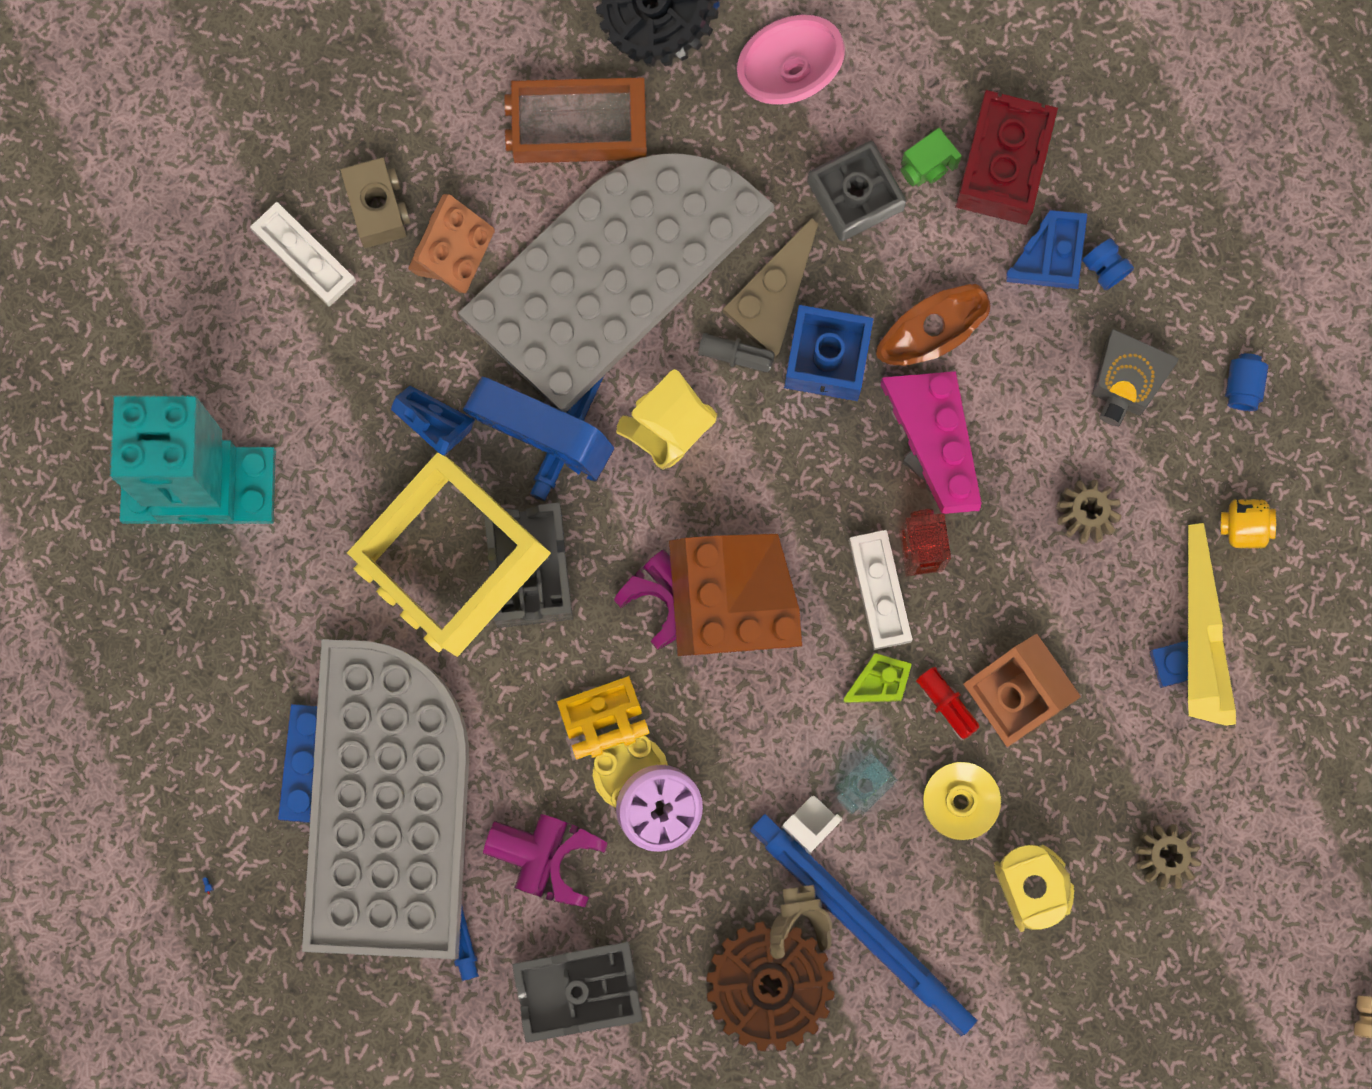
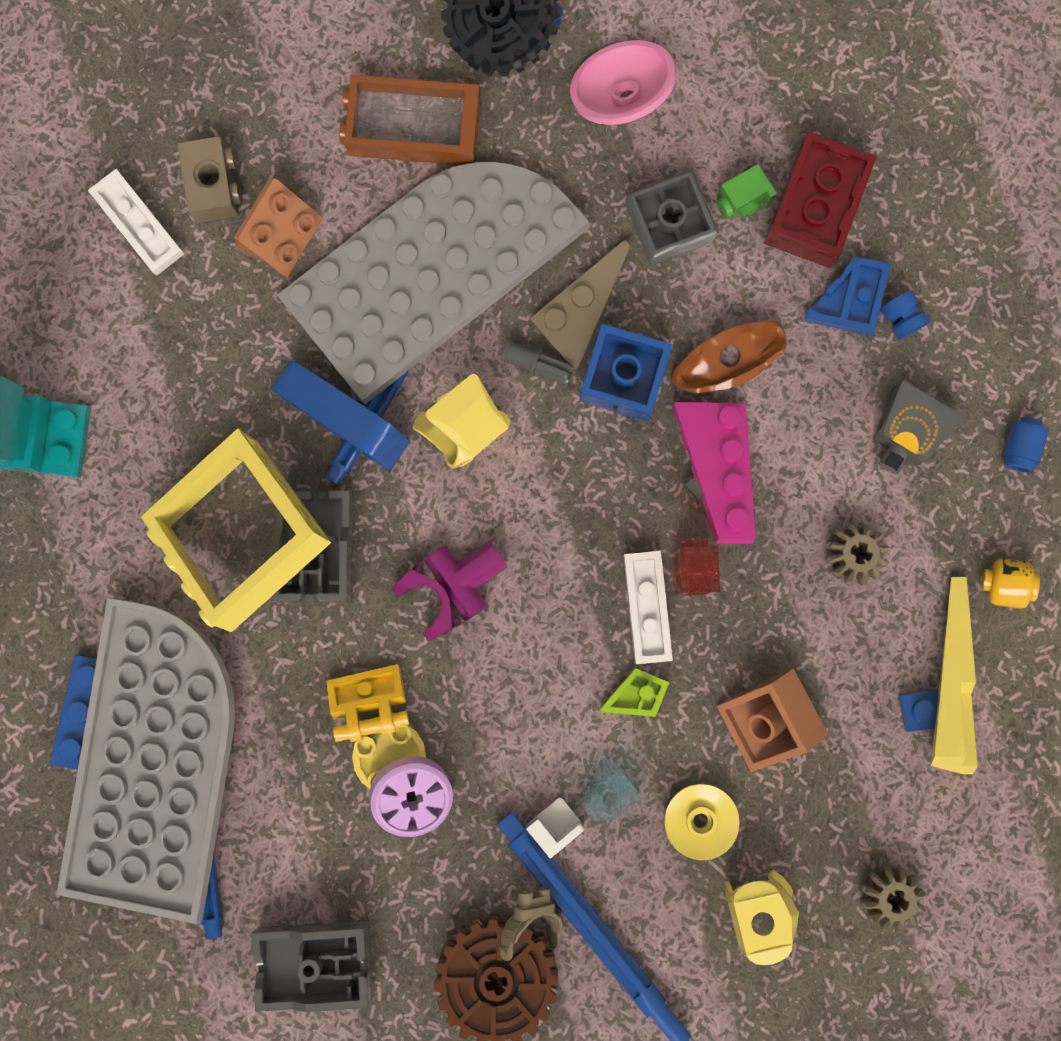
camera: 10 degrees right, 5 degrees up
(432, 419) = (238, 396): blue wing -> none
(541, 855) = (294, 829): magenta connector -> none
(732, 595) = (504, 601): dark orange slope -> none
(948, 703) = (700, 725): red axle -> none

